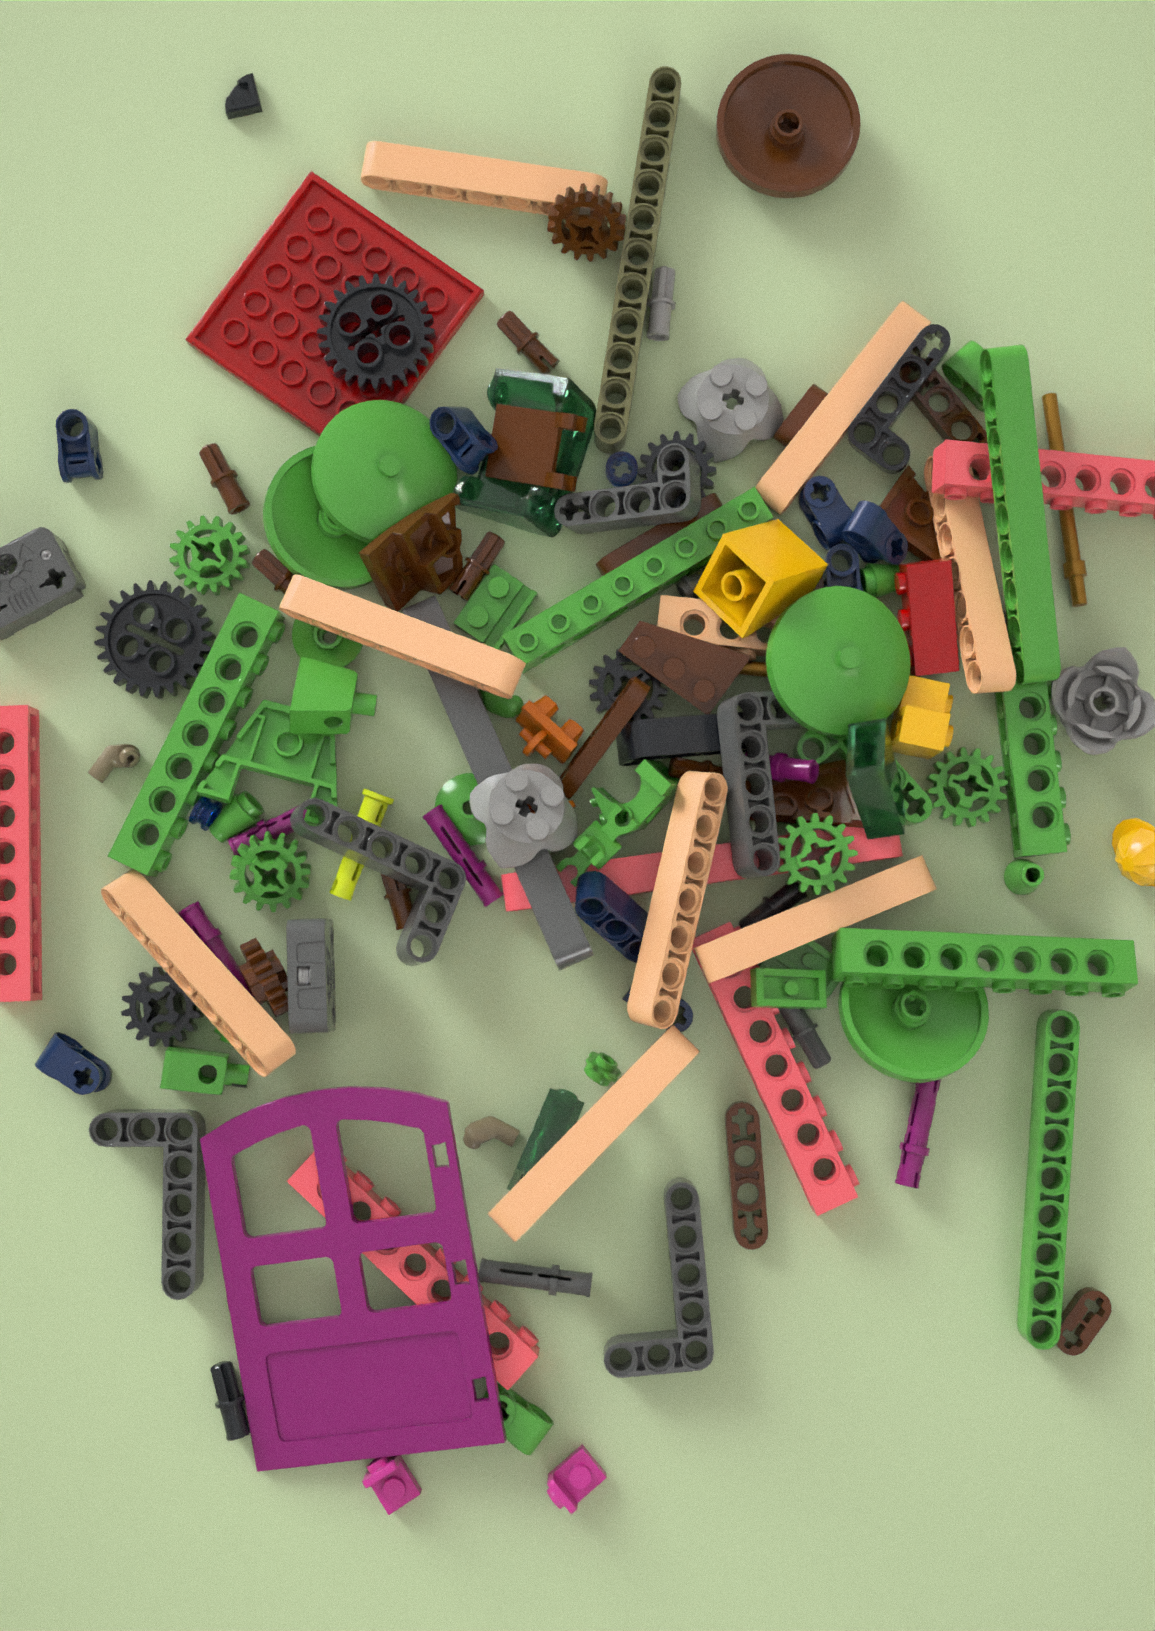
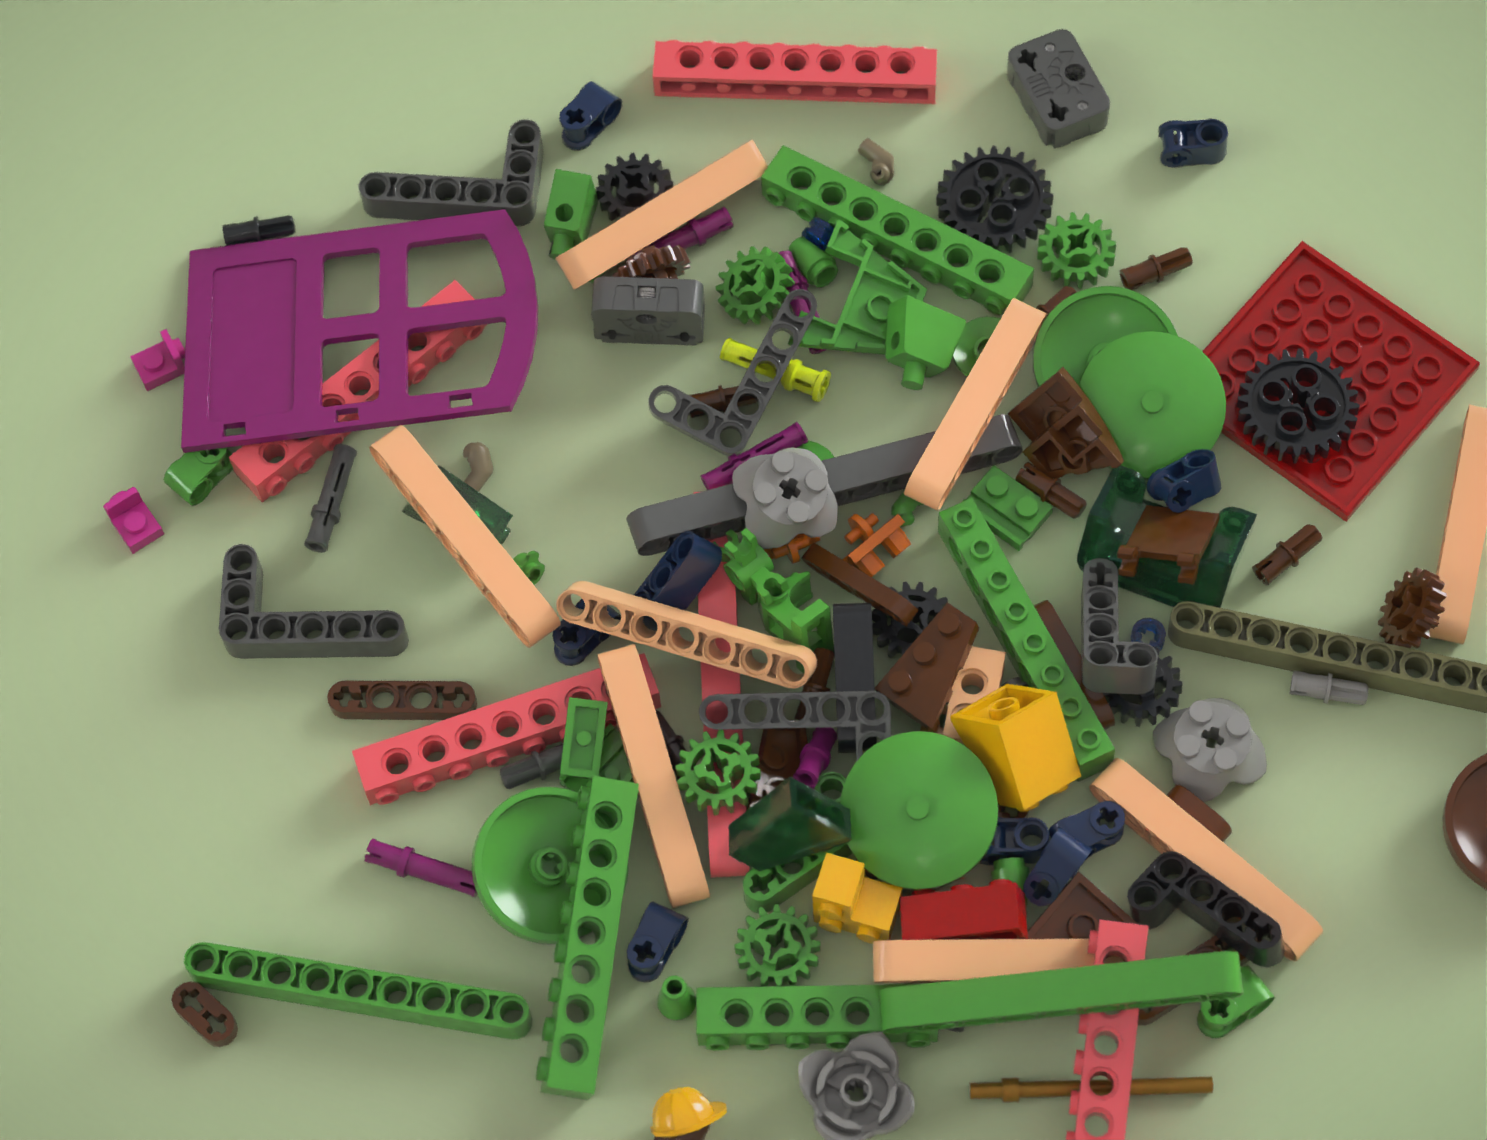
camera: 95 degrees right, 20 degrees down
(964, 900) = (657, 936): none -> dark blue piece

